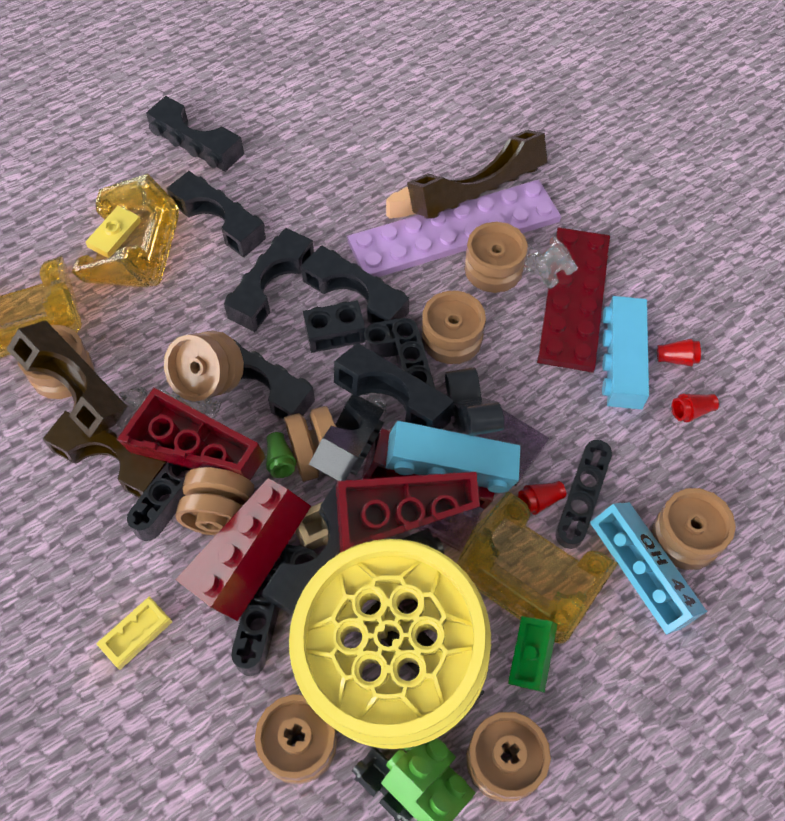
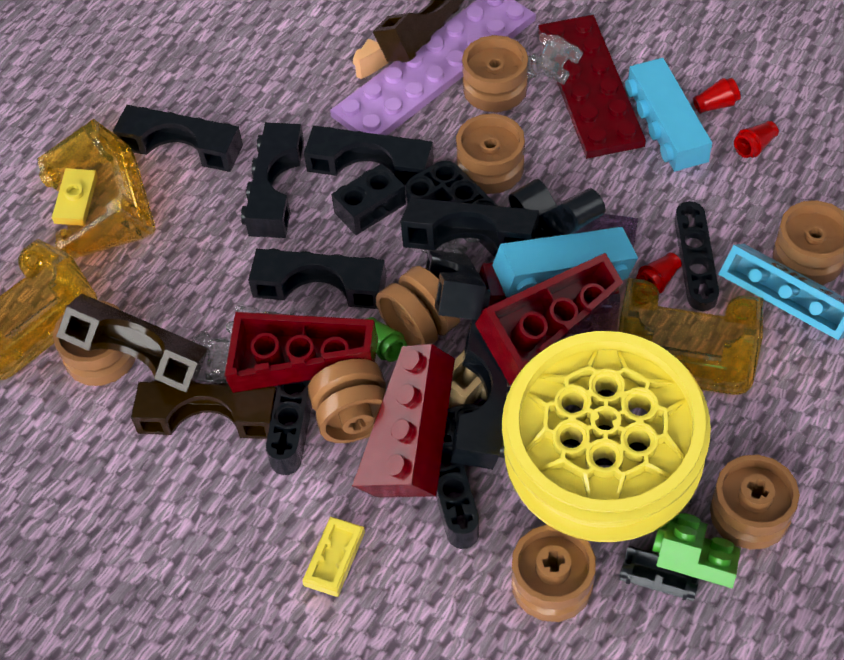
camera: 20 degrees left, 5 degrees down
(203, 365) = (271, 295): medium nougat wheel -> none
(217, 146) = (138, 73): black arch -> none
(533, 654) = (727, 408): green plate -> none

